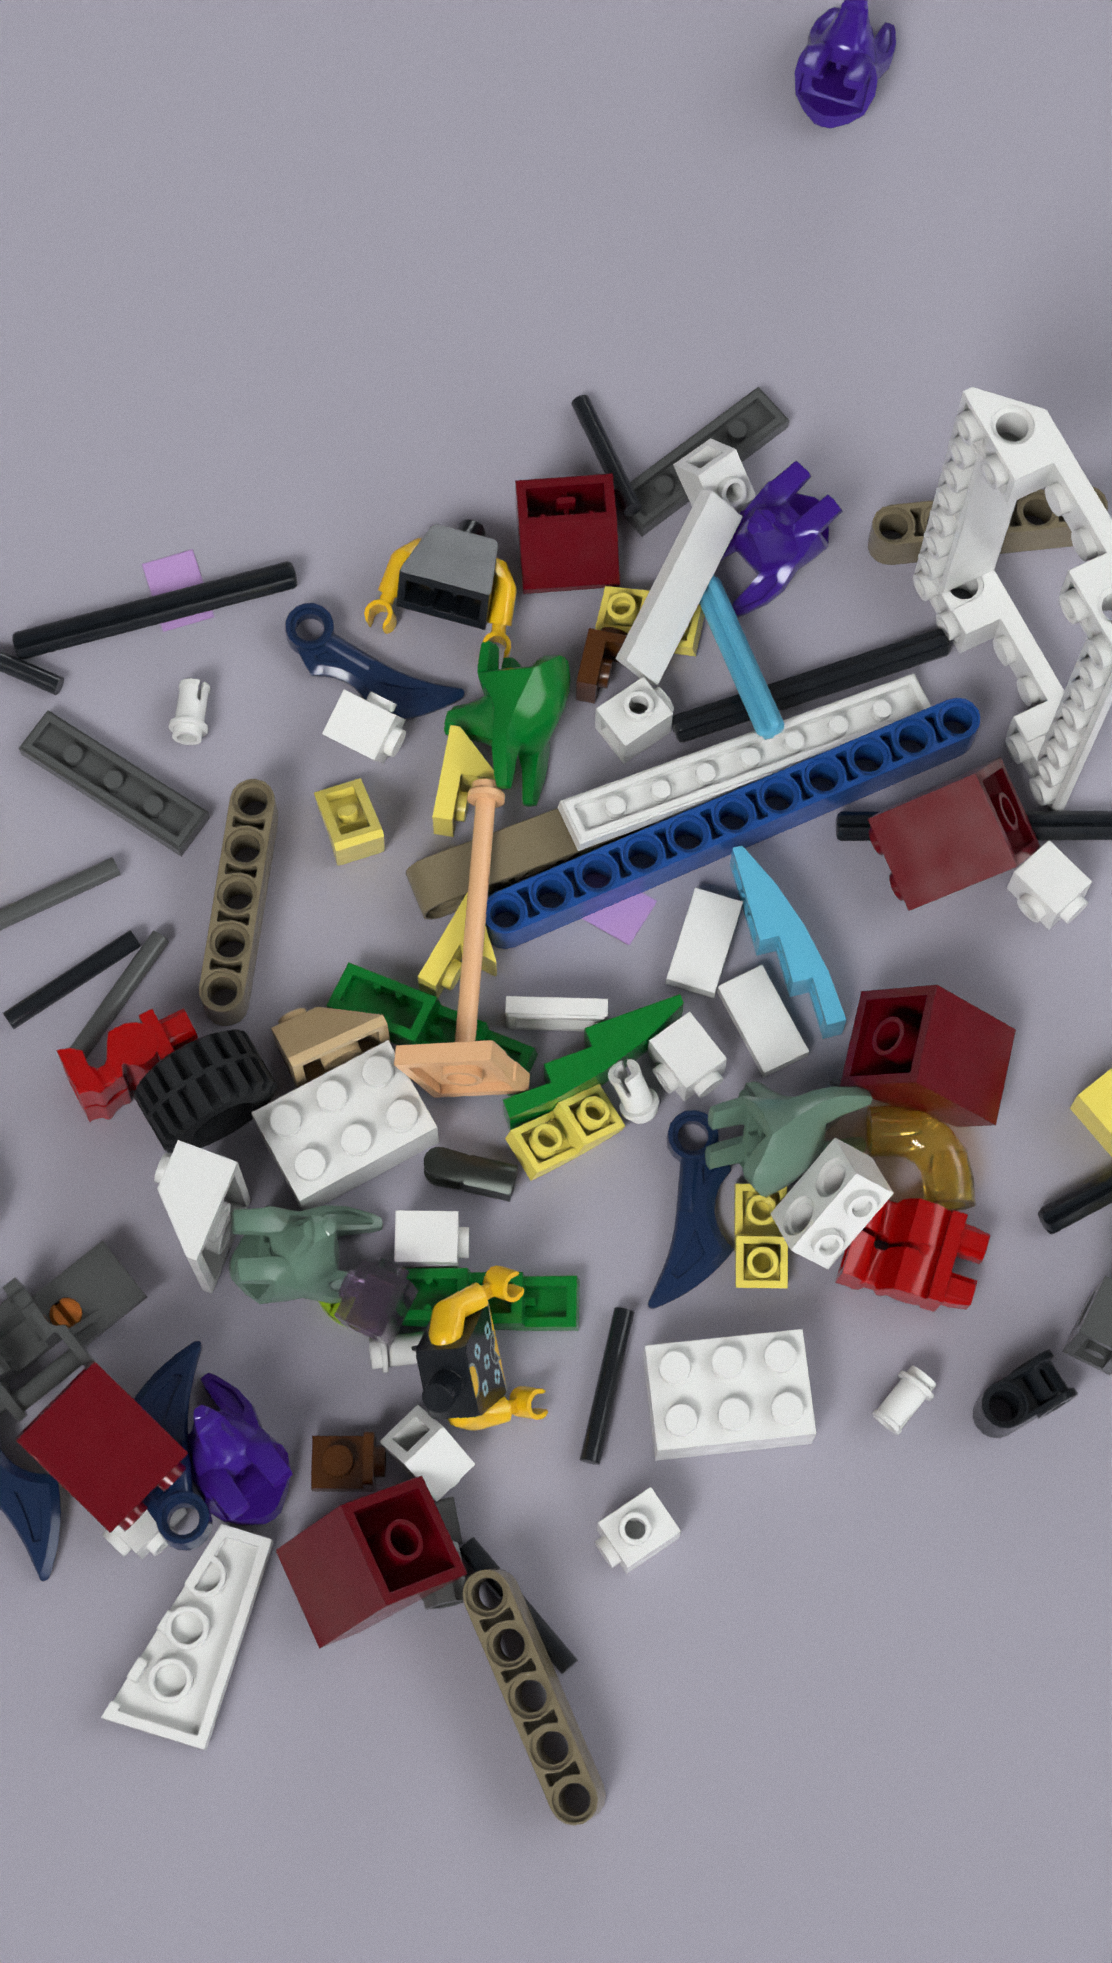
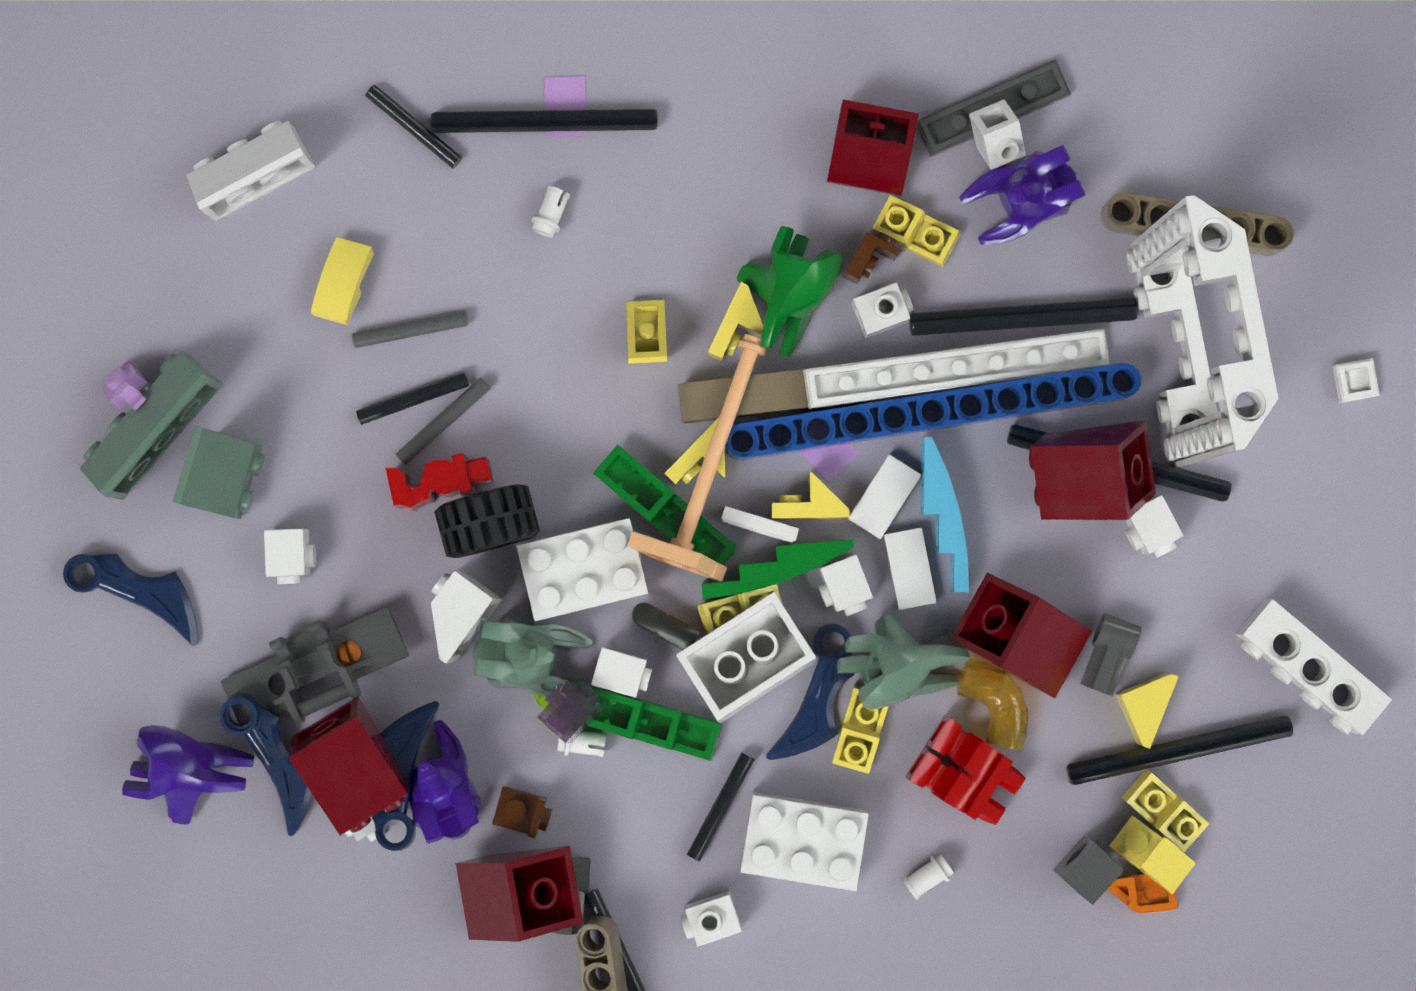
camera: 20 degrees right, 15 degrees up
(114, 783) = (480, 251): dark grey tile -> none
(189, 1661) = (379, 918): white wing -> none
(236, 879) = (549, 355): dark tan beam -> none
(325, 1039) = (582, 502): tan slope -> none
(341, 660) = (701, 232): dark blue piece -> none
(366, 725) = (678, 262): white brick -> none
(427, 1450) = (579, 825): white brick -> none
(451, 578) = (774, 160): torso -> none
(462, 1359) = (620, 772): torso -> none
(588, 1178) = (746, 657): none -> white slope
(606, 454) = (921, 86): black bar -> none
(628, 970) = (821, 504): none -> light yellow slope
(637, 1100) = (800, 605): white pin -> none
(679, 587) = (944, 218): white tile -> none
(740, 661) = (973, 283): medium azure axle -> none
(831, 1203) = (916, 729): white brick -> none
(1030, 1392) = (1016, 897): black piece -> none
(1047, 1044) = (1113, 644): none -> dark grey piece

